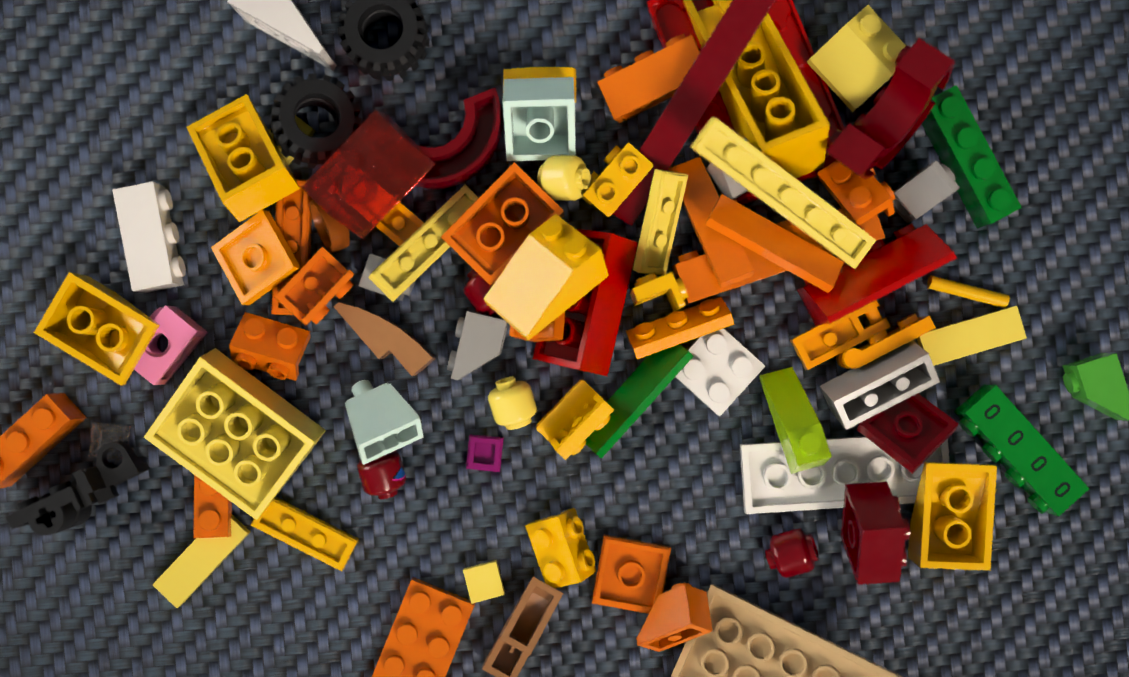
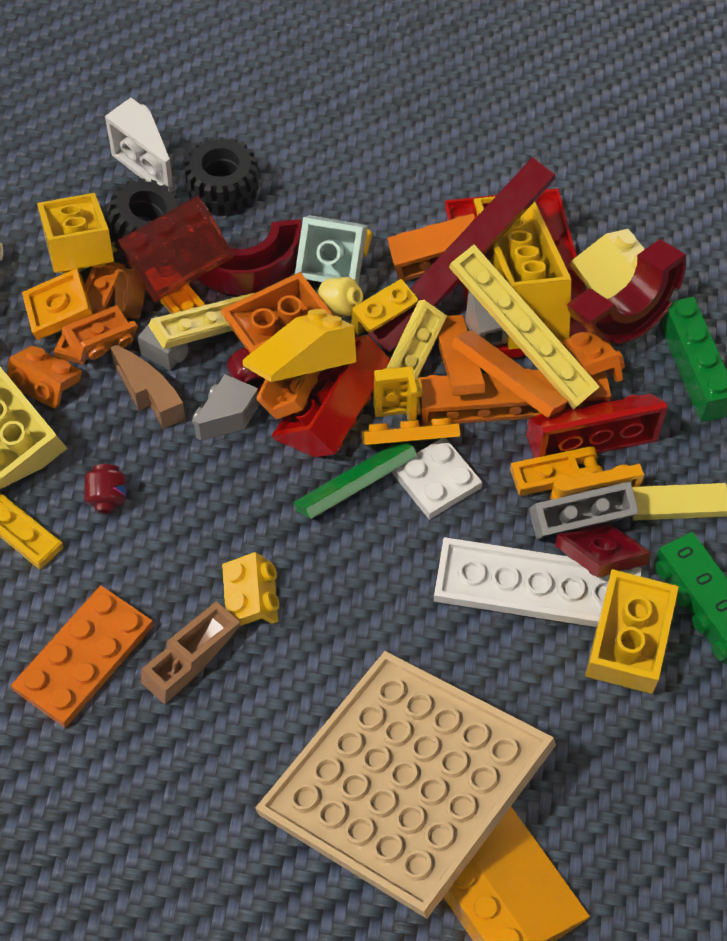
camera: 10 degrees right, 30 degrees down
(381, 420) = (118, 442): light aqua torso -> none
(484, 581) = (168, 605): light yellow tile -> none
(485, 453) = (204, 500): magenta tile -> none
(512, 403) = (242, 459): light yellow head -> none
(574, 419) = (294, 481): yellow bracket -> none
(630, 574) = (310, 632): orange tile -> none
(676, 618) = (340, 670): orange slope -> none
(792, 553) = (470, 640): dark red head -> none
(795, 421) = (498, 528): lime slope -> none
(874, 533) = (550, 622): dark red brick -> none
(924, 191) = (651, 368): light grey slope -> none
(968, 291) = (682, 465): yellow piece -> none

